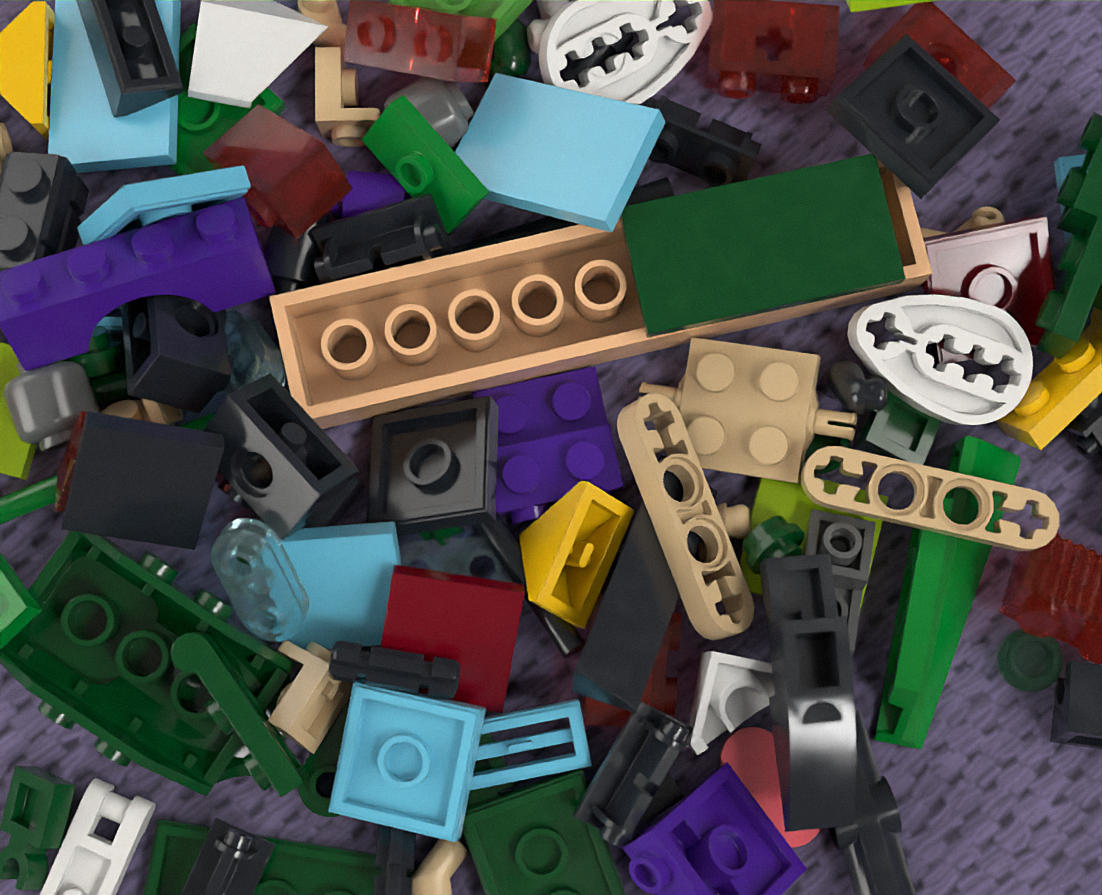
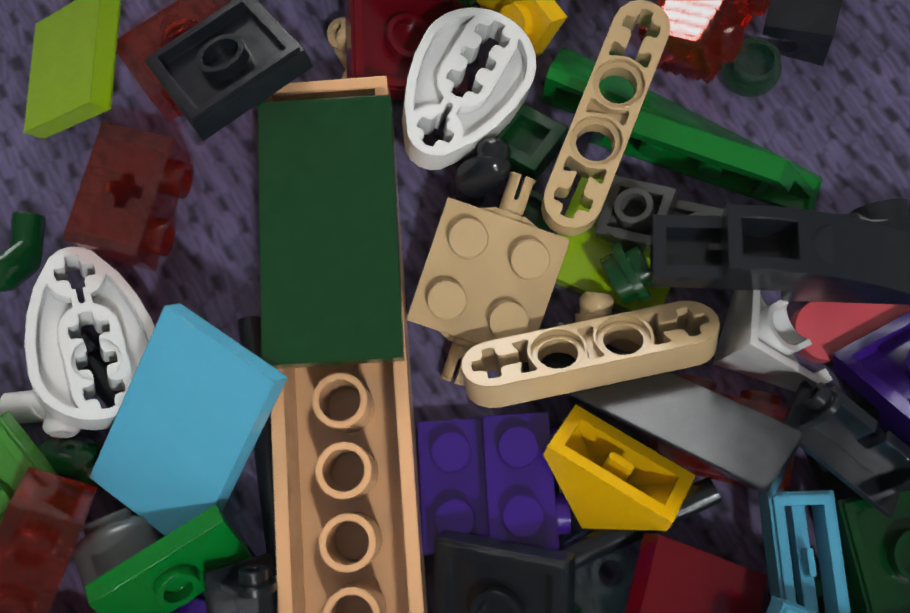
camera: 80 degrees left, 5 degrees down
(715, 156) = (224, 269): black hinge -> none

